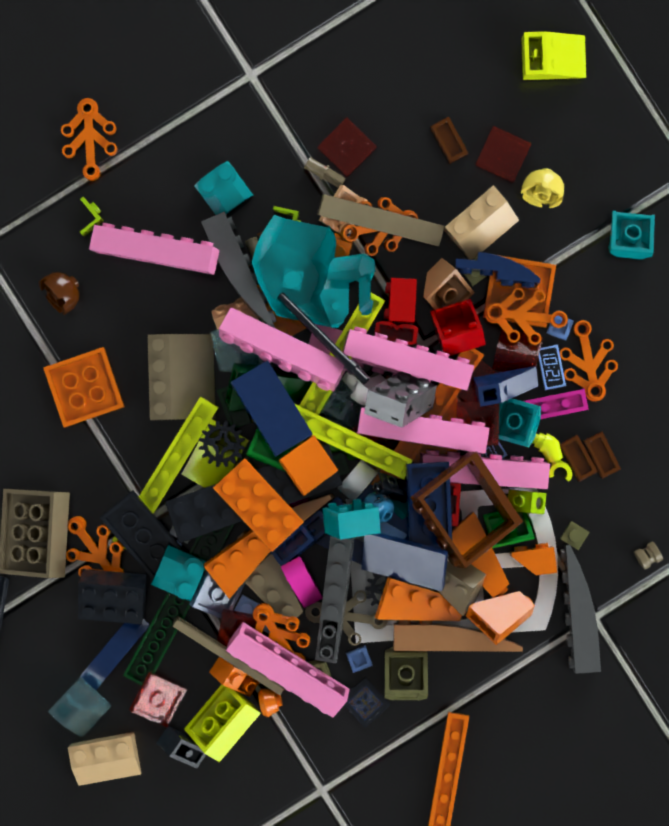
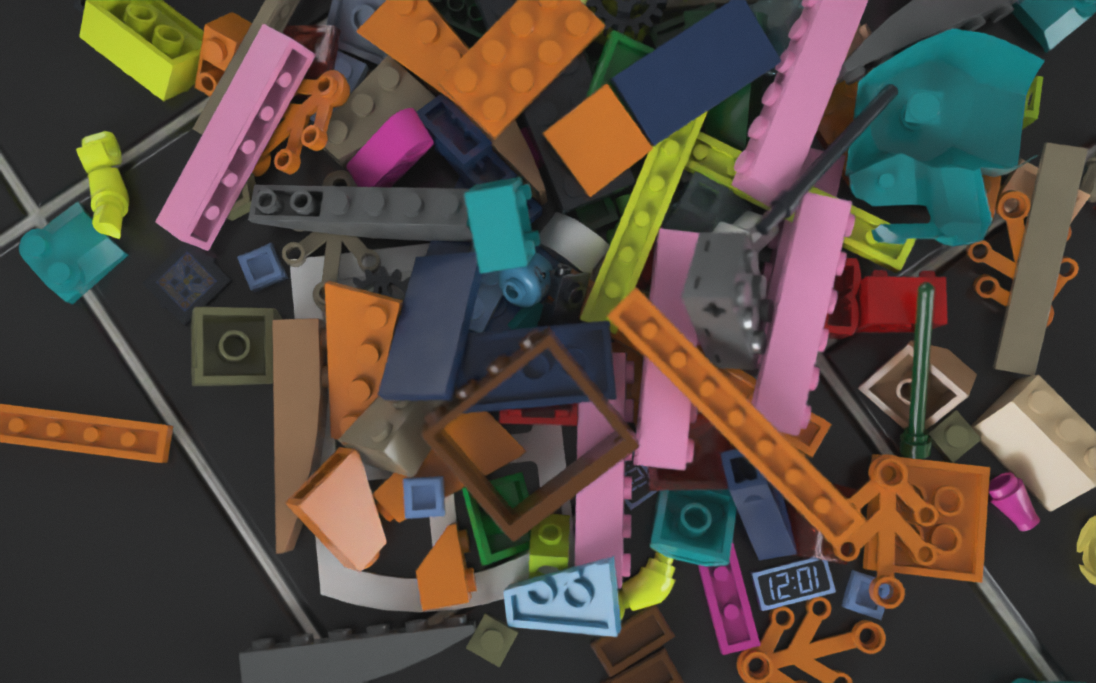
camera: 85 degrees right, 5 degrees down
(269, 702) = (180, 114): orange cone -> none
(307, 747) = (107, 188): none -> neon yellow piece
(345, 768) = (70, 253): none -> teal slope
(458, 327) = (857, 408): red container -> none
(463, 399) = (736, 418): none -> orange plate
(477, 294) = (915, 441): none -> dark green piece
(496, 568) = (424, 497): none -> medium blue tile
(506, 270) = (971, 491): dark blue slope -> none
(511, 243) = (1013, 500): none -> dark pink cone
(555, 493) = (567, 600): none -> dark azure wing

